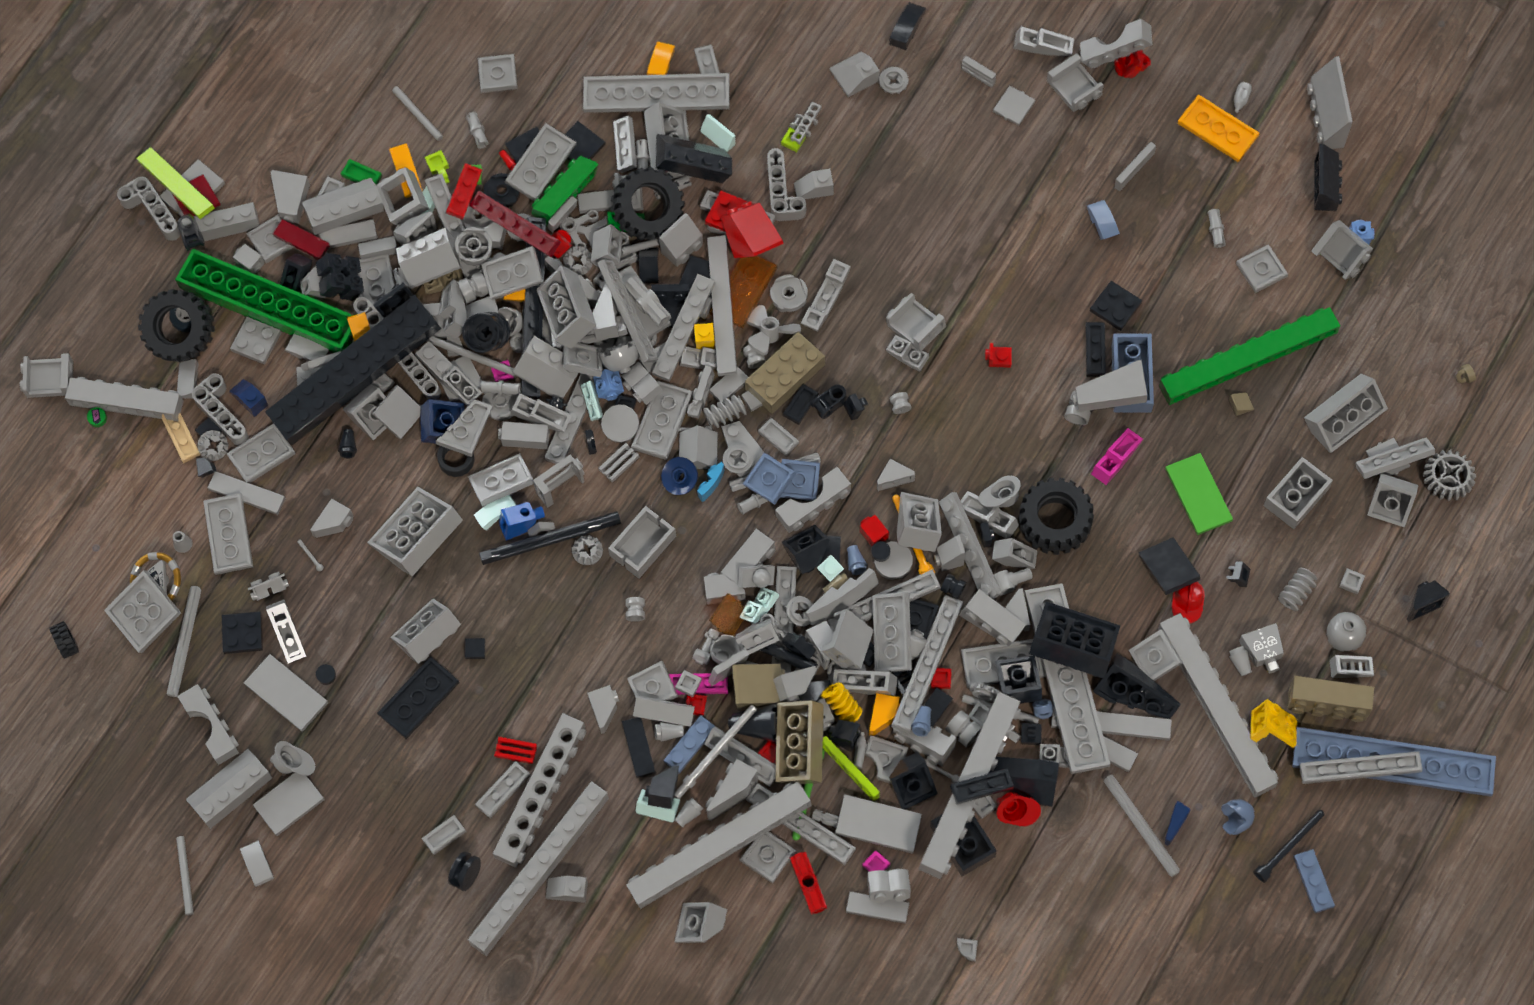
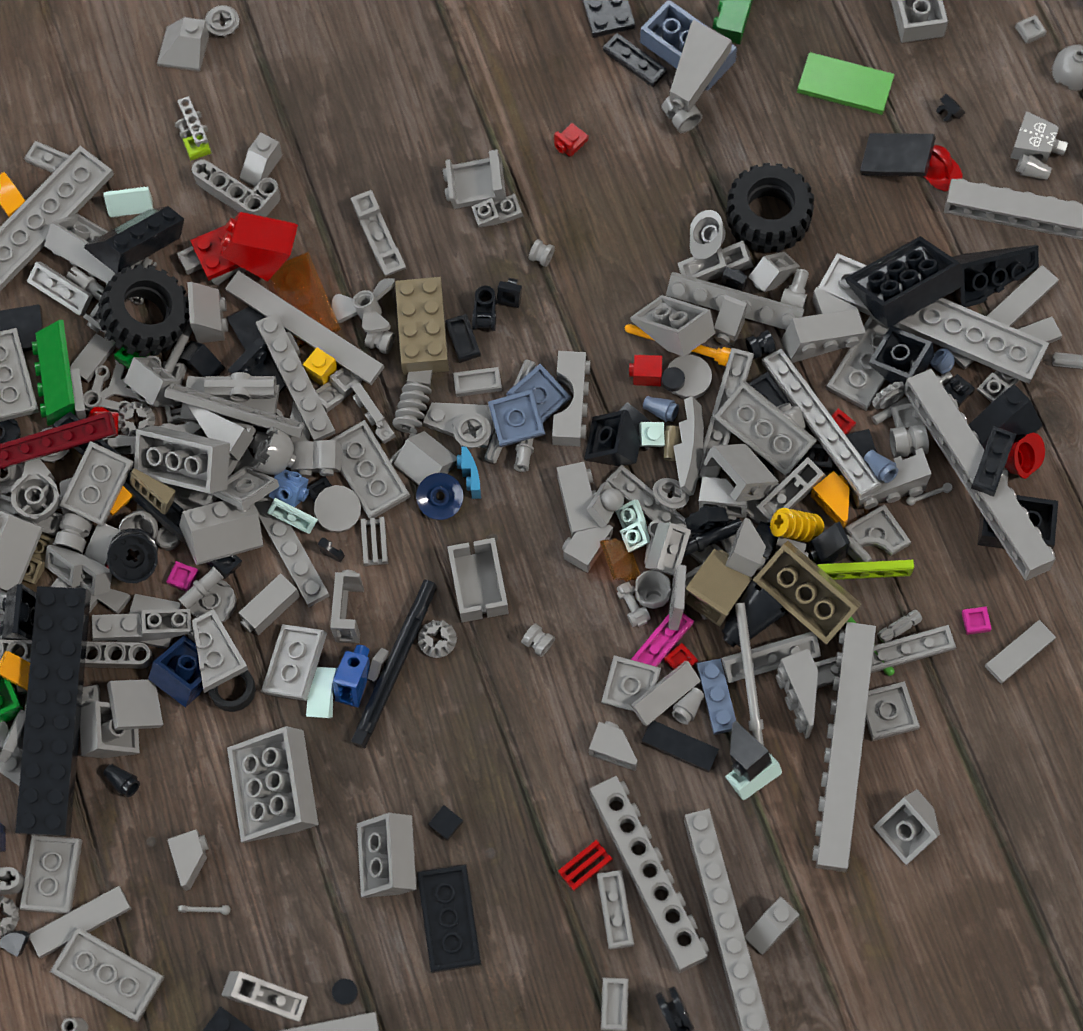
camera: 50 degrees left, 0 degrees up
(260, 588) = (195, 986): light grey hinge -> none
(471, 355) = (142, 589): light grey piece -> none
(535, 312) = (155, 492): none -> dark tan slope
(540, 413) = (261, 572): light grey slope -> none
(556, 402) = (263, 550): black plate -> none
(688, 683) = (658, 648): light grey plate -> none
(688, 812) = (786, 748): light grey cone -> none
(728, 385) = (387, 386): light grey tile -> none
(769, 752) = (787, 628): red tile -> none
(786, 303) = (340, 253): light grey plate -> none
(812, 894) = (964, 700): red piece -> none
(878, 823) = (939, 587): light grey tile -> none
(889, 885) = (1010, 623): light grey brick -> none
(894, 475) = (607, 309): light grey slope -> none
(912, 781) = (923, 522): black slope -> none
(1116, 456) = (753, 119): dark pink slope -> none
(1155, 655) = (973, 229): light grey plate -> none
(1297, 588) = (1006, 72): light grey piece -> none

